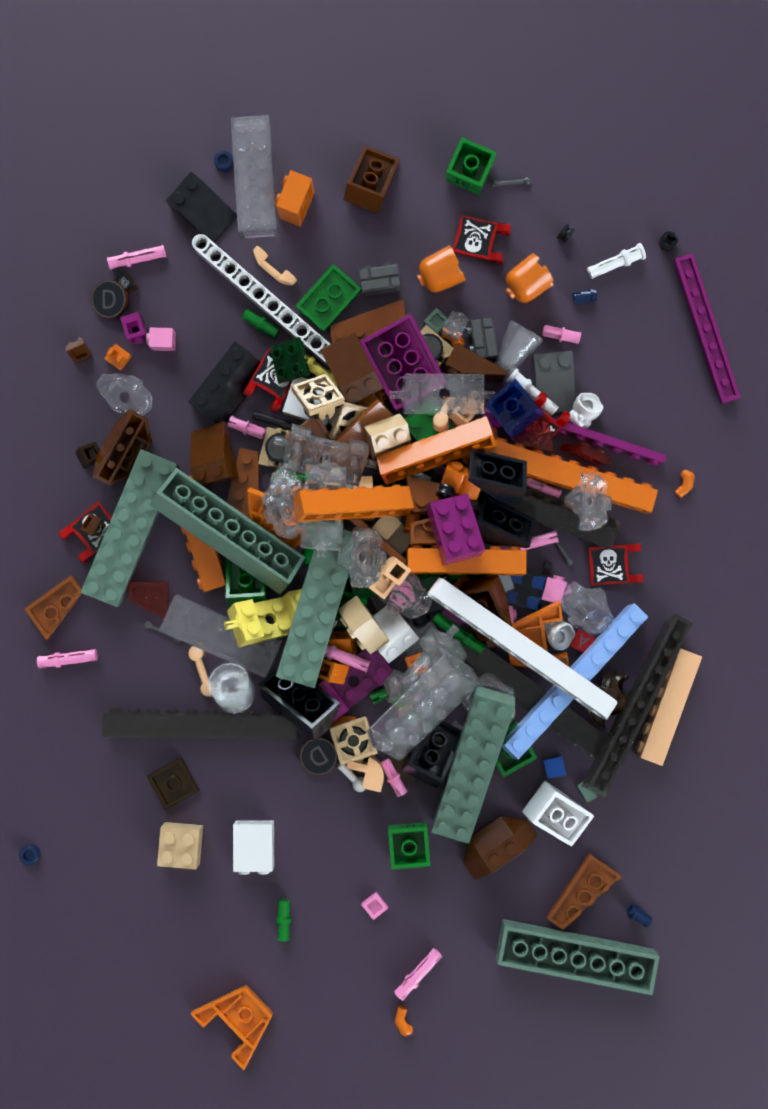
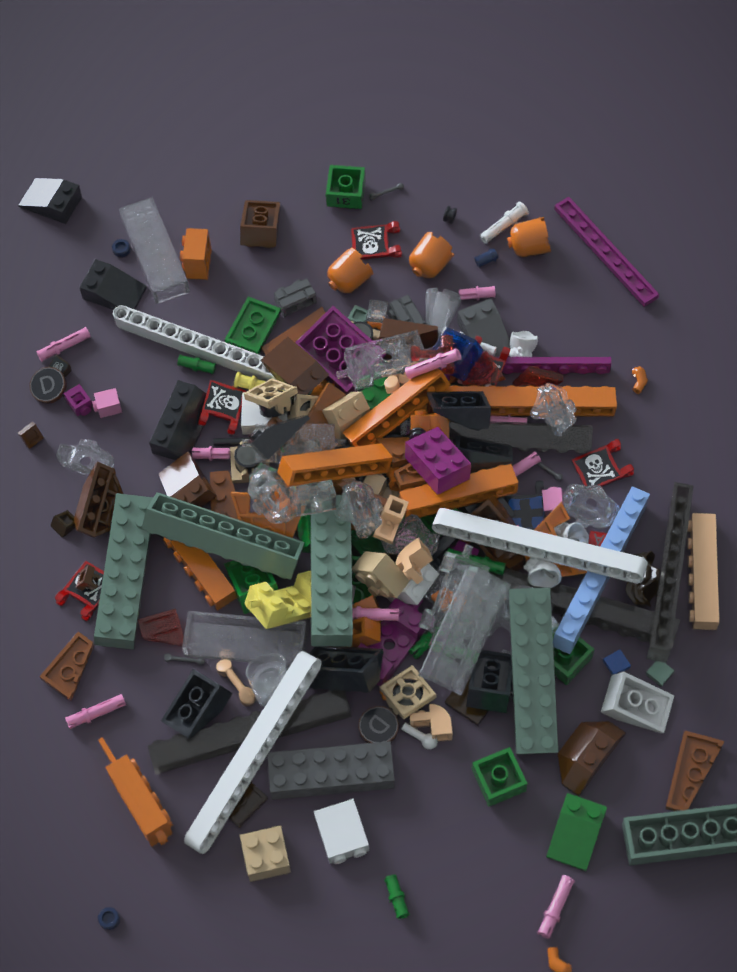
camera: 20 degrees left, 25 degrees down
(80, 758) = (138, 797): none -> orange piece
(117, 356) = (69, 431): orange tile -> none
(158, 687) = (196, 704): none -> black slope
(168, 78) = (52, 198): none -> black slope
(196, 753) = (252, 752): none -> white beam
(261, 787) = (330, 770): none -> dark grey brick
(285, 278) = (208, 322): light nougat bar -> none
(289, 360) = (233, 381): dark green hinge -> none
(304, 455) = (271, 438): none -> black slope
(374, 905) = (486, 854): bright pink tile -> none
(393, 778) = (461, 722): bright pink axle -> none
(397, 622) = (414, 558): none -> light nougat brick
(460, 914) = (576, 832): none -> green slope
(500, 411) = (446, 346): none -> clear red bar
(507, 424) = (441, 360): none -> bright pink pin
(516, 669) = (542, 573): none -> white hair
(635, 291) = (529, 238): none -> orange cylinder
(671, 236) = (545, 191): black bush -> none

